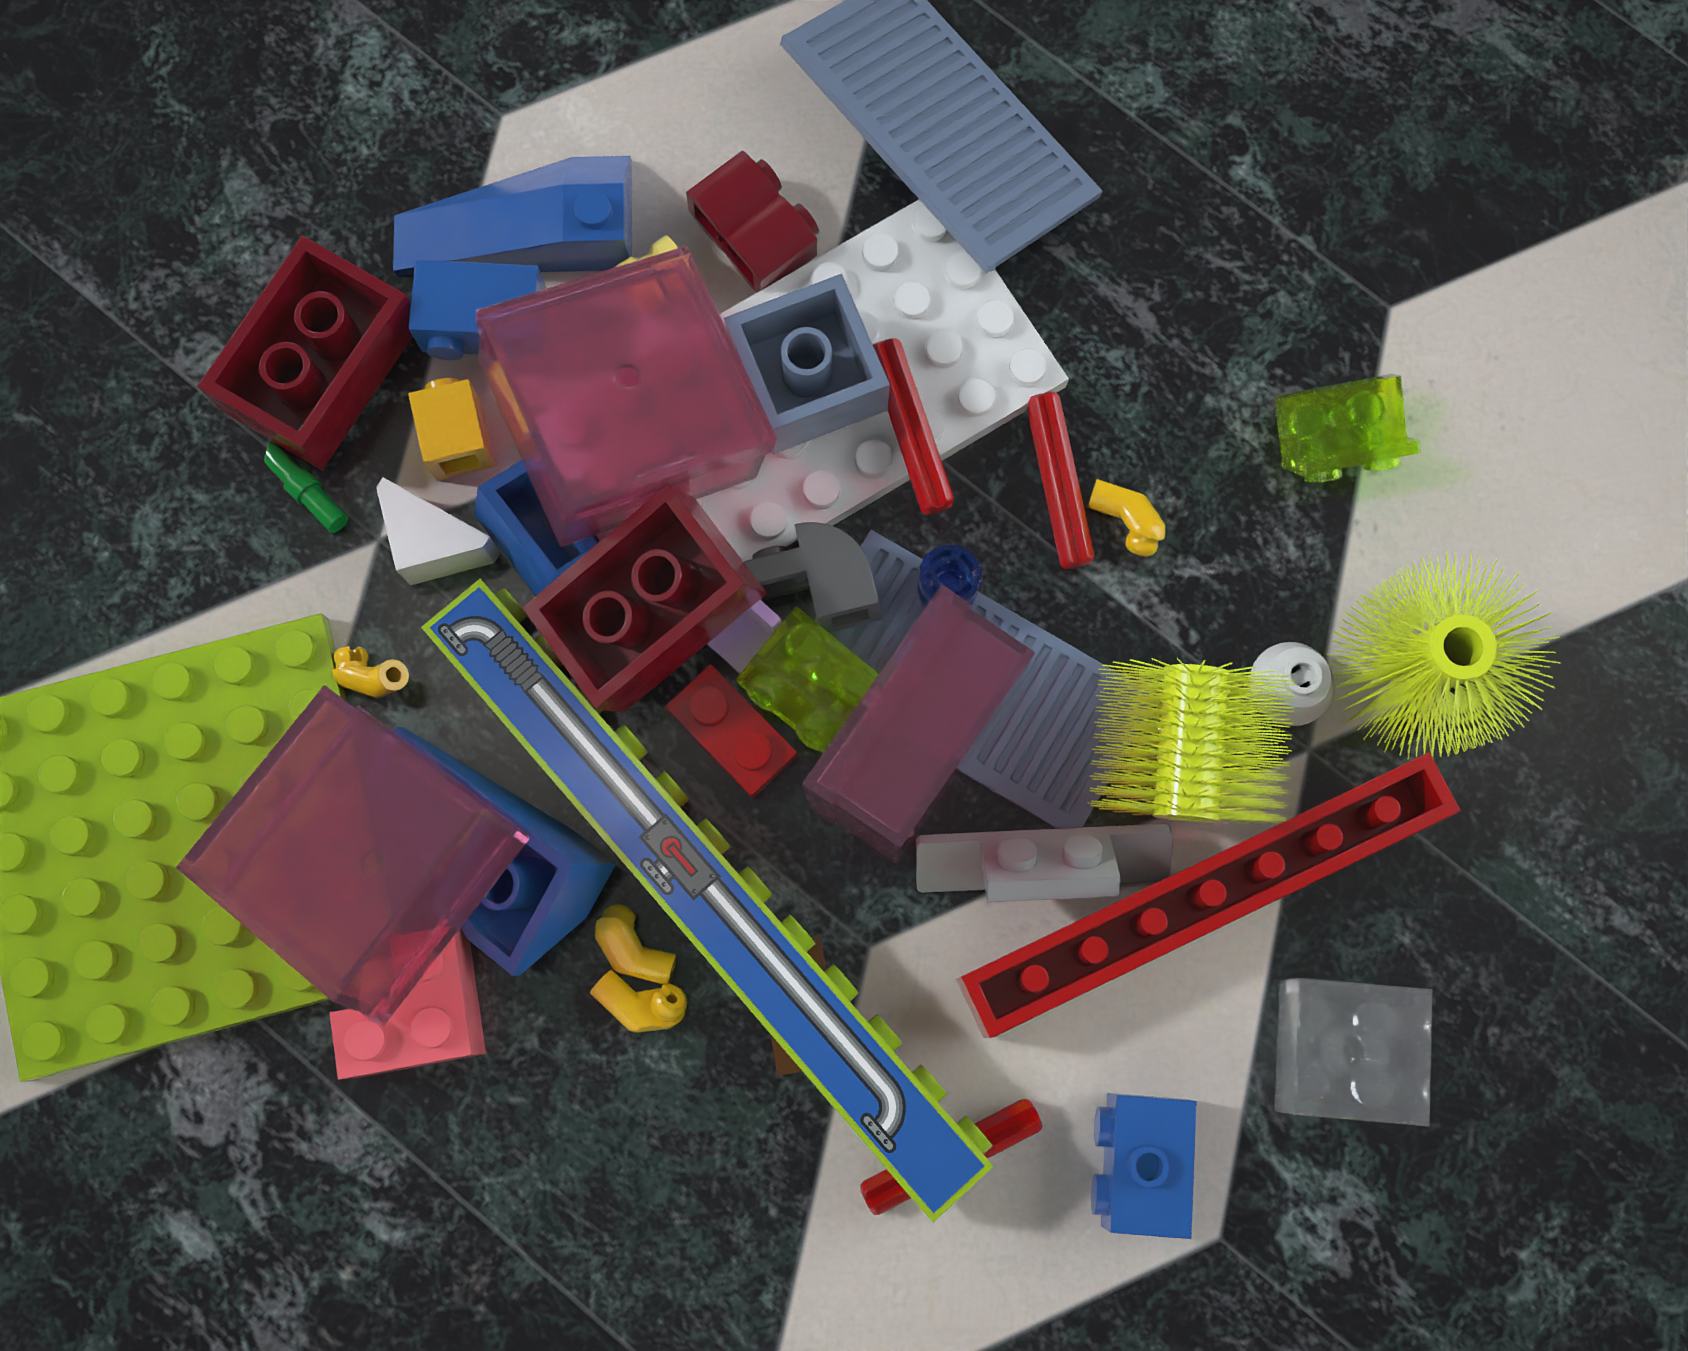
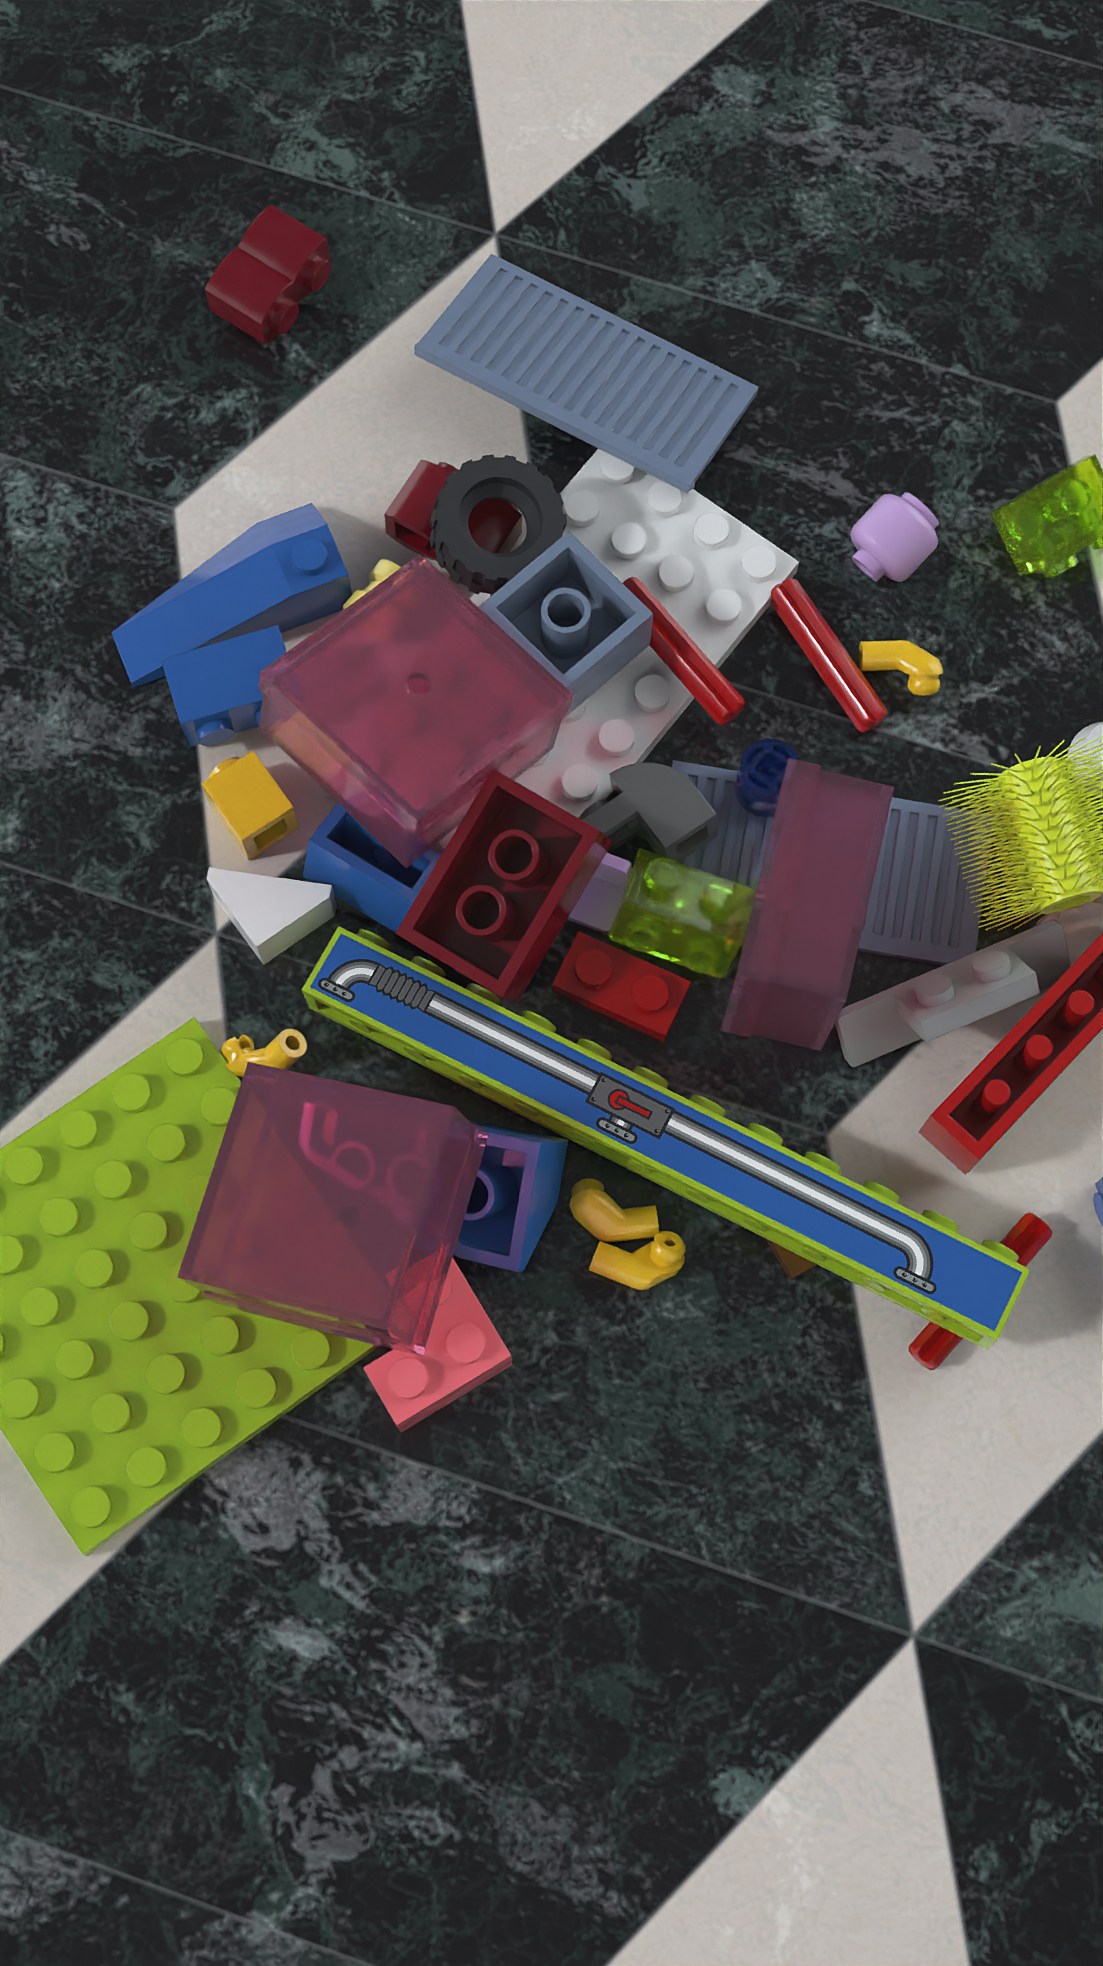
camera: 20 degrees left, 5 degrees down
(305, 488) = (128, 910): green piece -> none
(310, 352) = (91, 780): dark red brick -> none
(774, 194) = (486, 480): none -> black tyre
(1170, 388) = (894, 537): none -> lavender head

